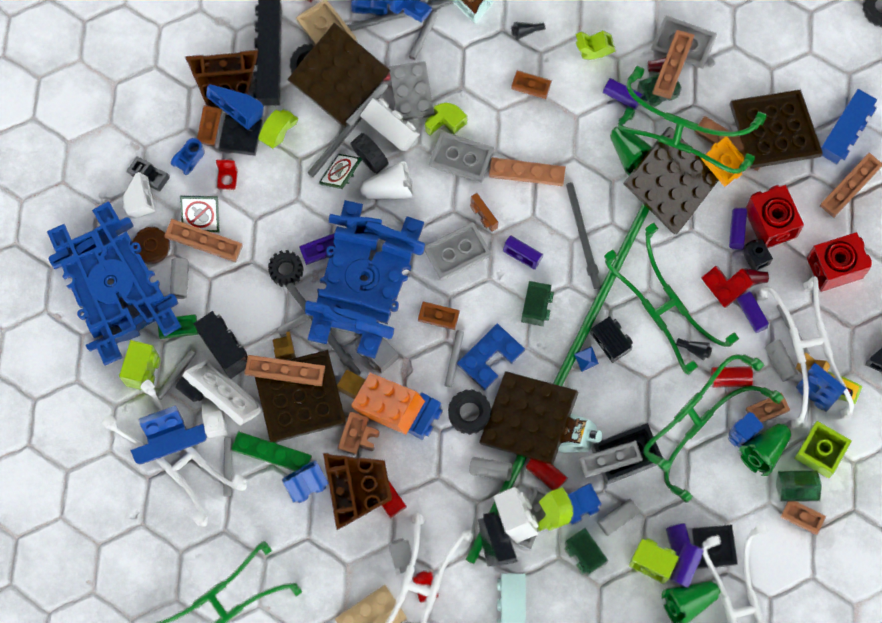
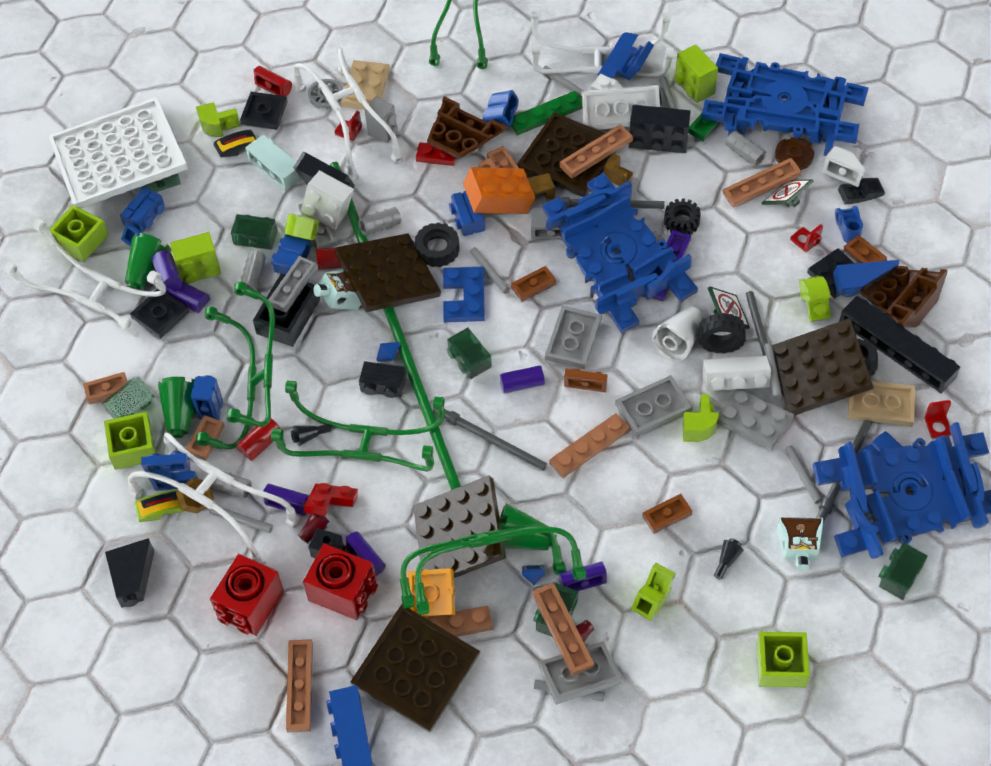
camera: 135 degrees right, 15 degrees down
(647, 123) = (533, 573): none -> blue slope

